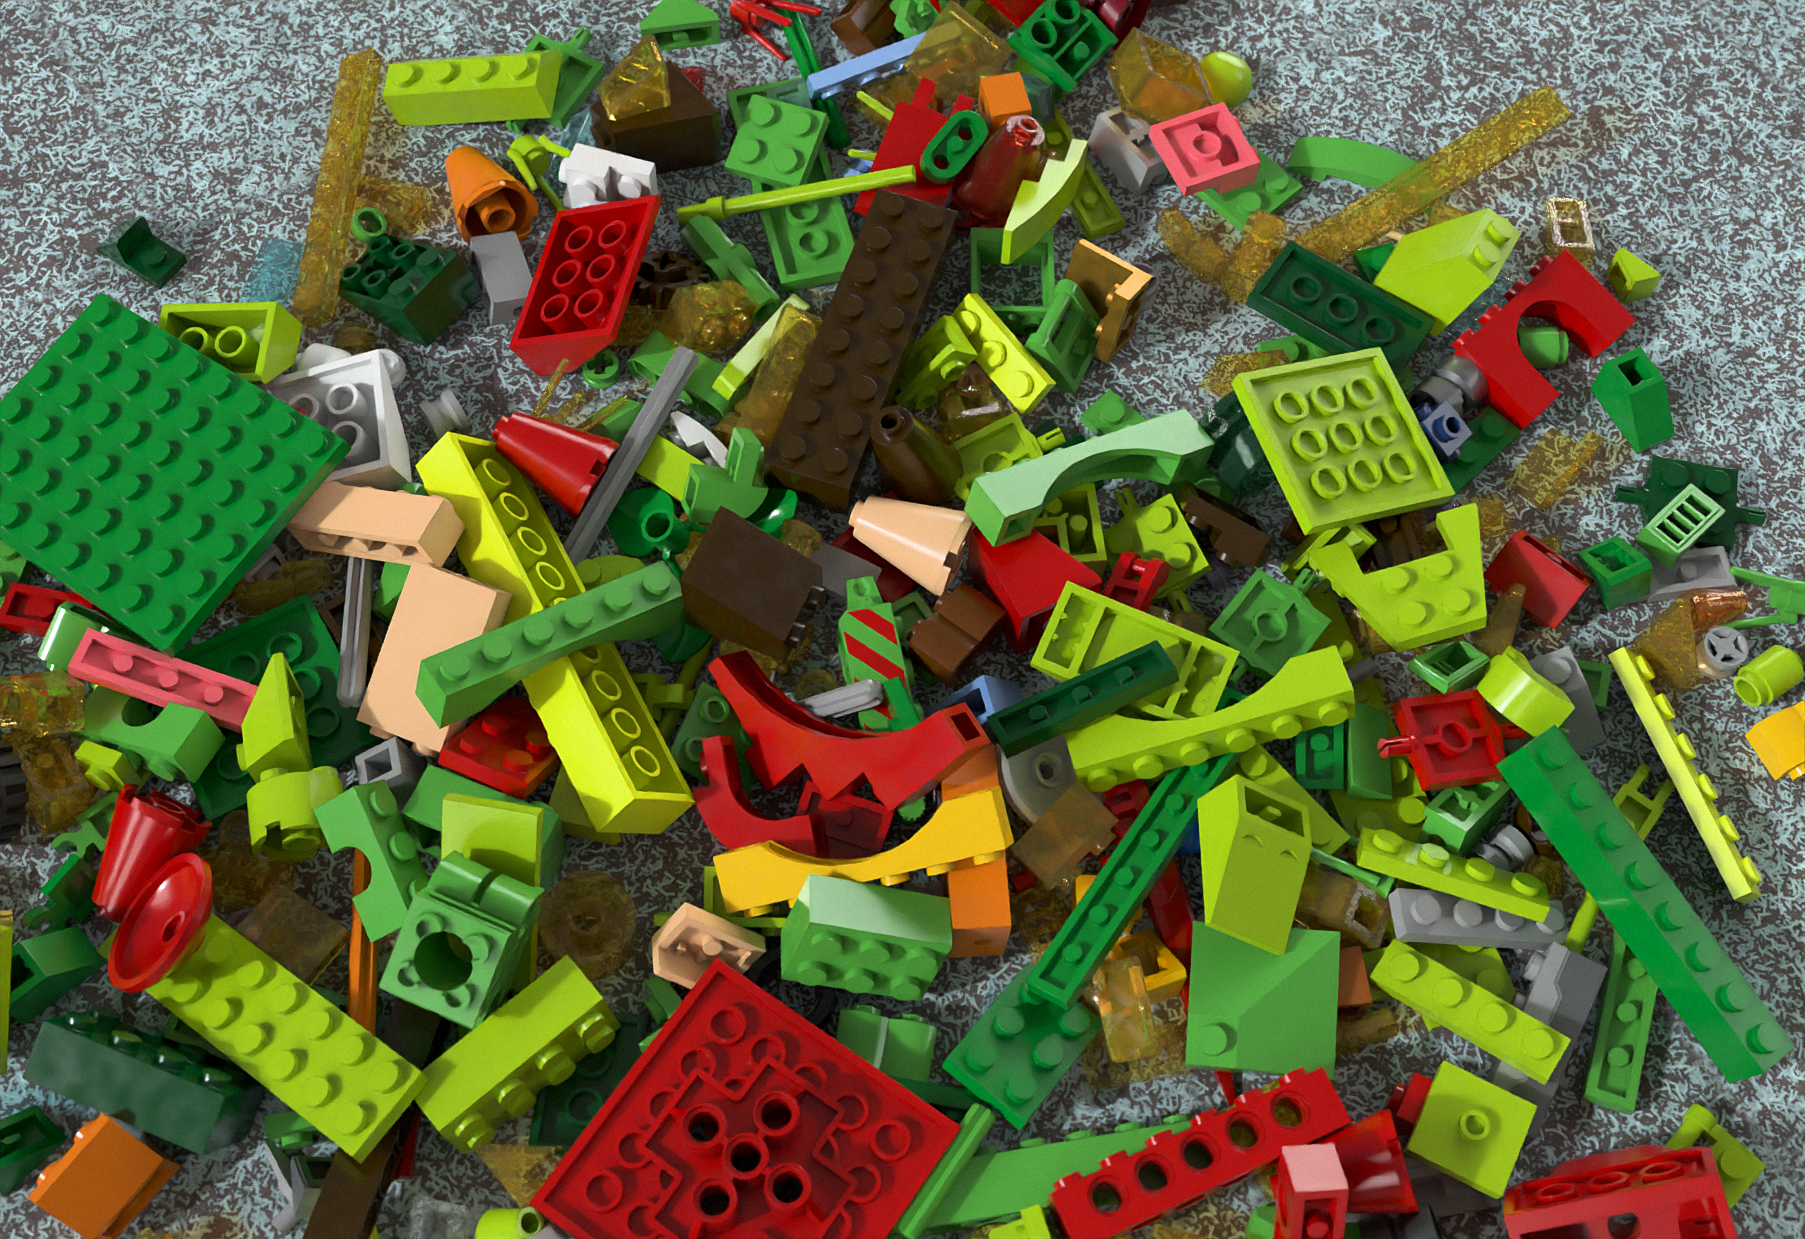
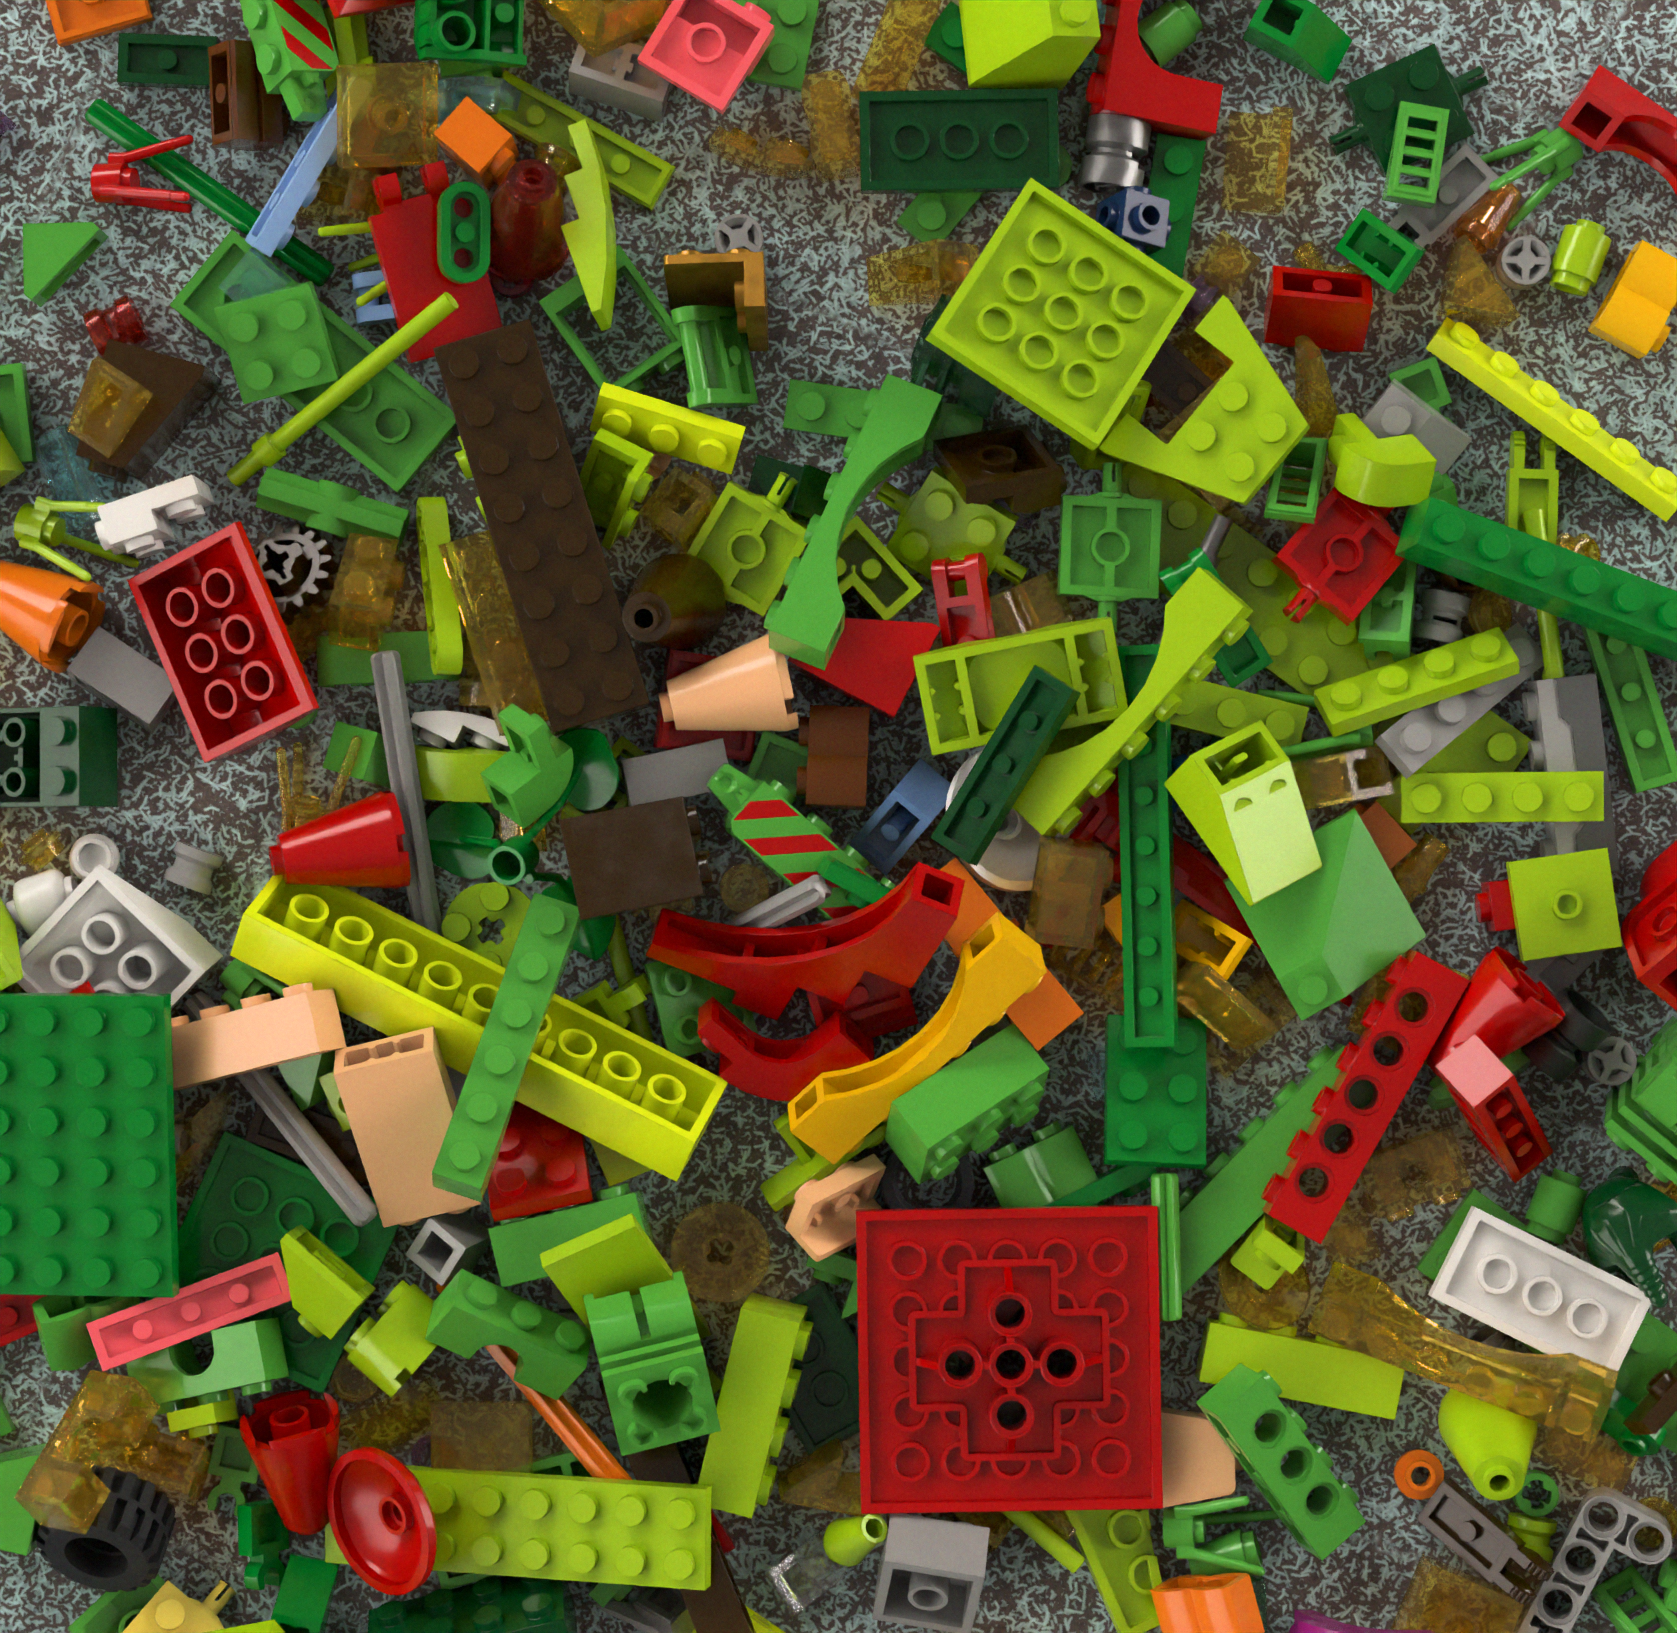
camera: 35 degrees left, 25 degrees up
(800, 537) = (636, 783): clear yellow wheel -> none
(1364, 769) = (1267, 594): bright green slope -> none

